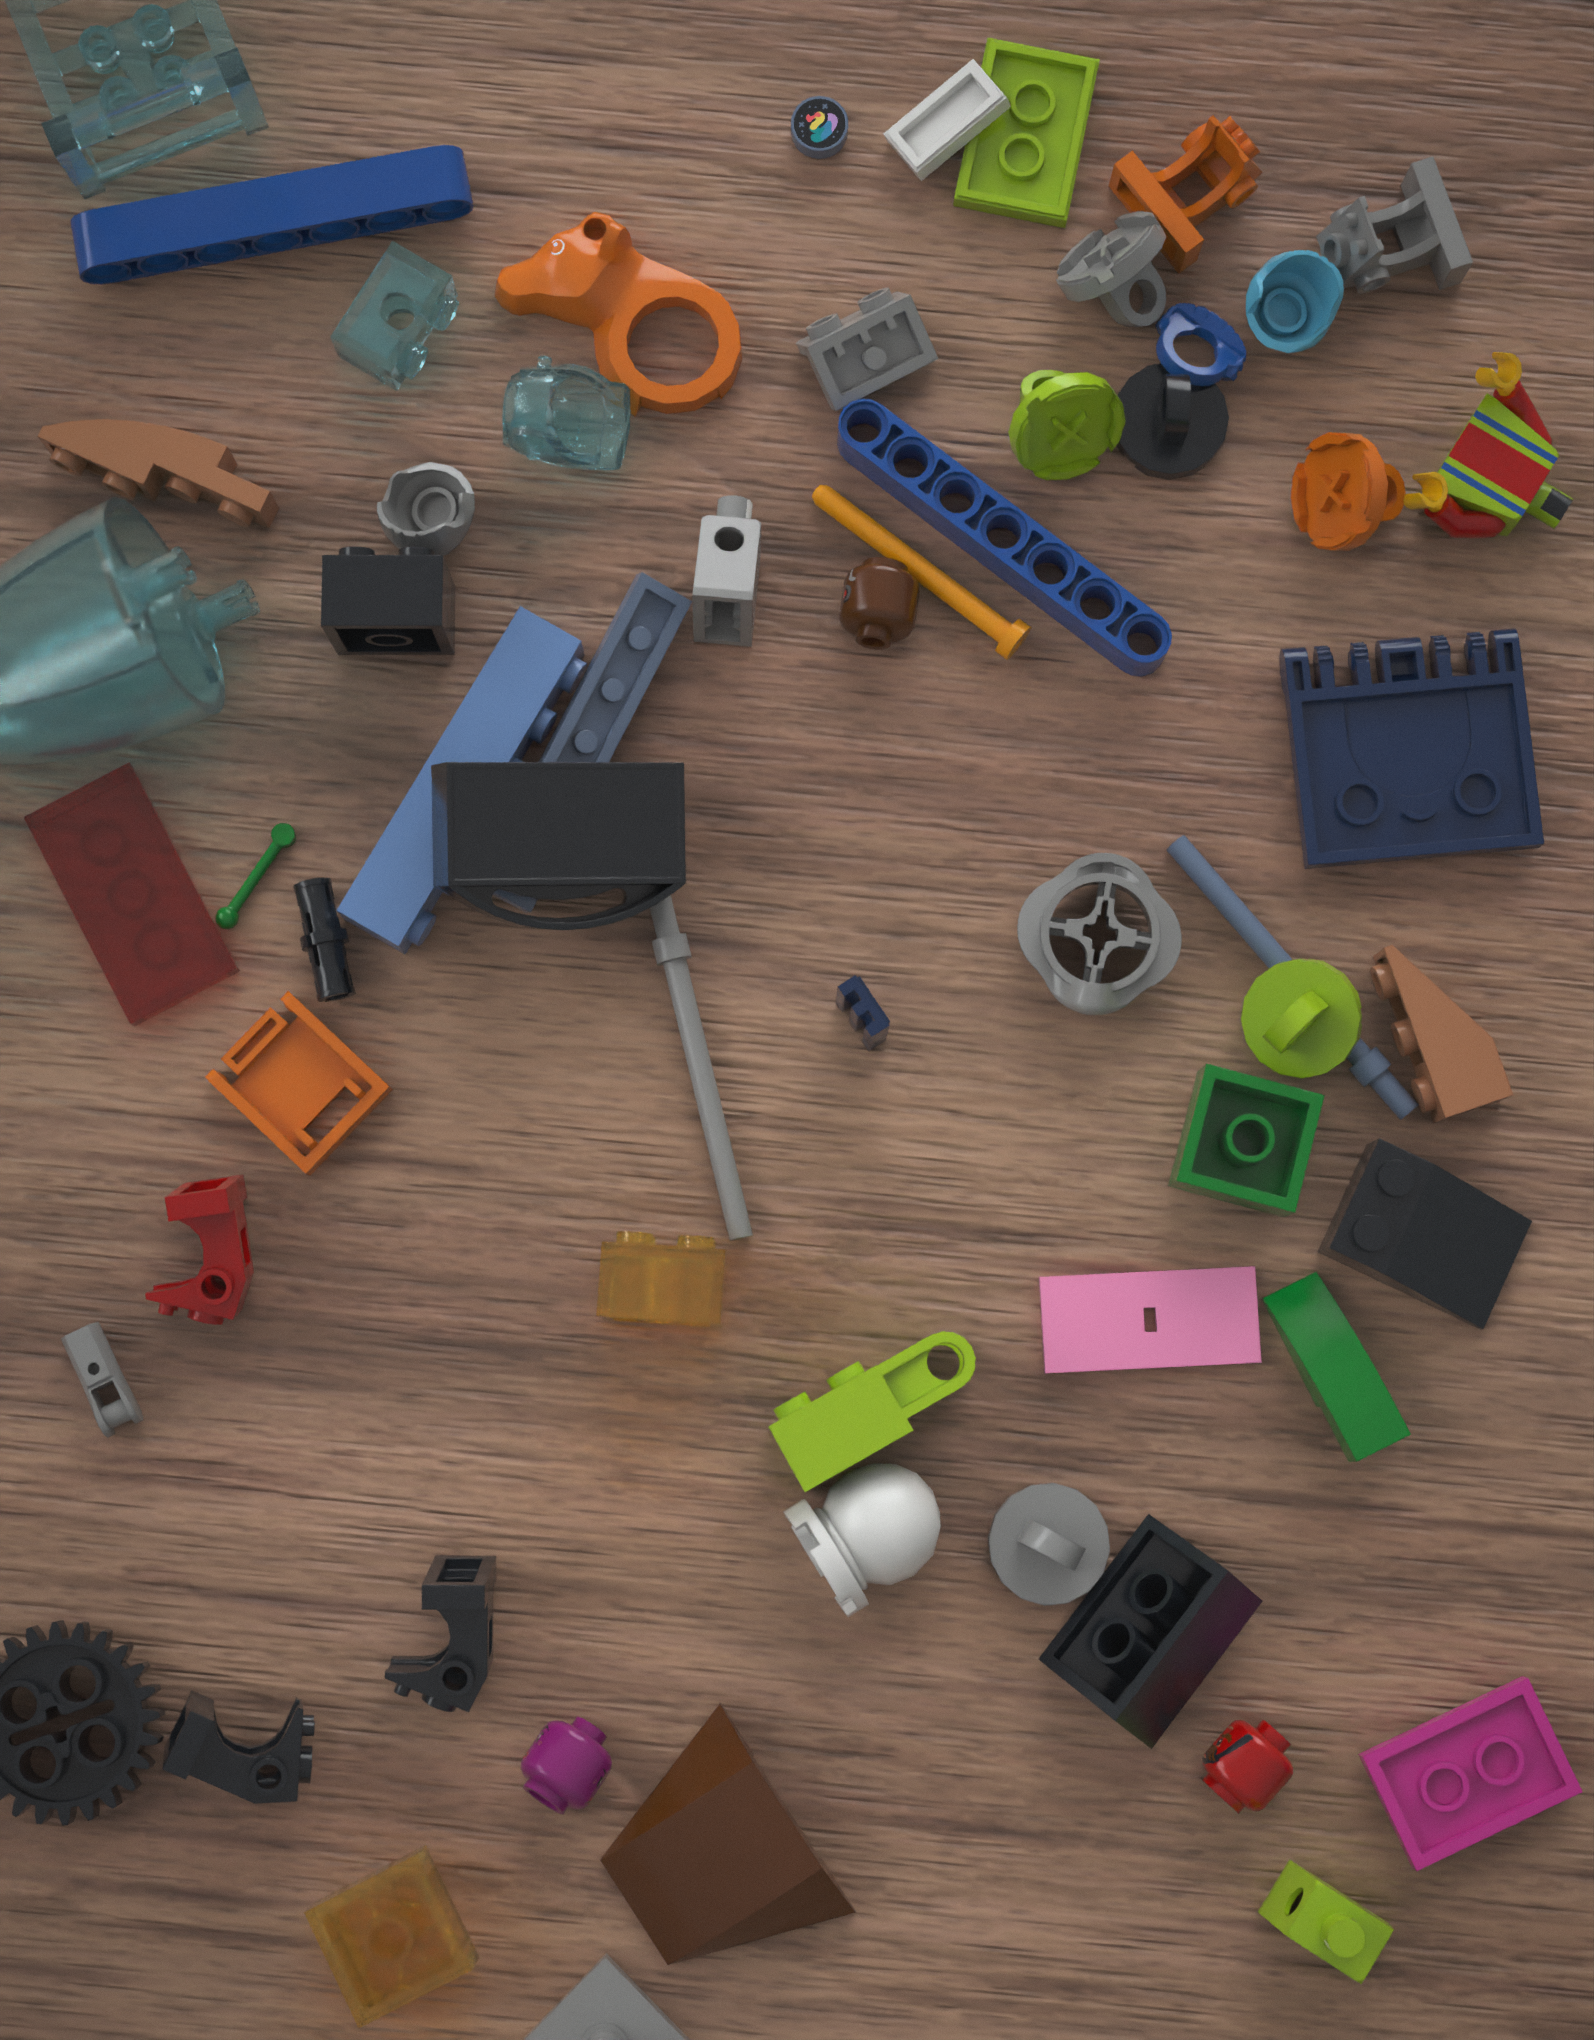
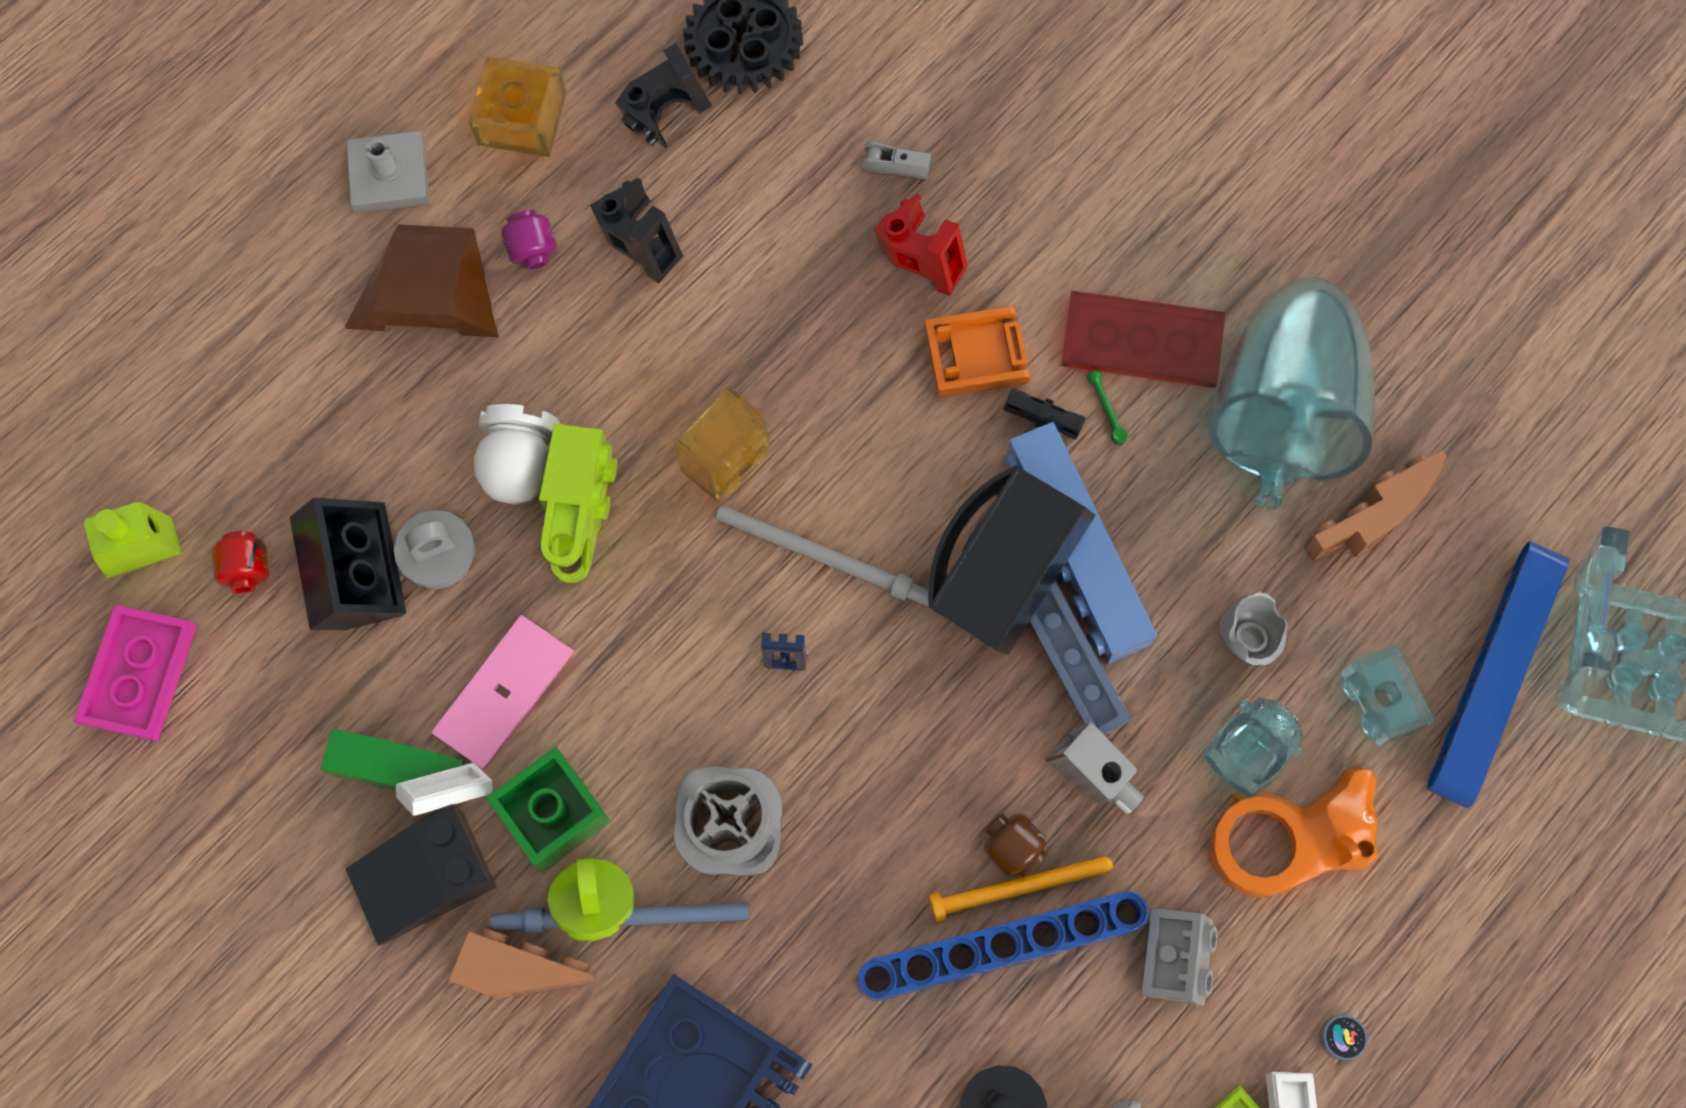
camera: 130 degrees right, 10 degrees down
(388, 602) = (1211, 567): black brick -> none
(1065, 423) = (1044, 1036): lime tile -> none
(1317, 1278) = (443, 789): none -> white tile

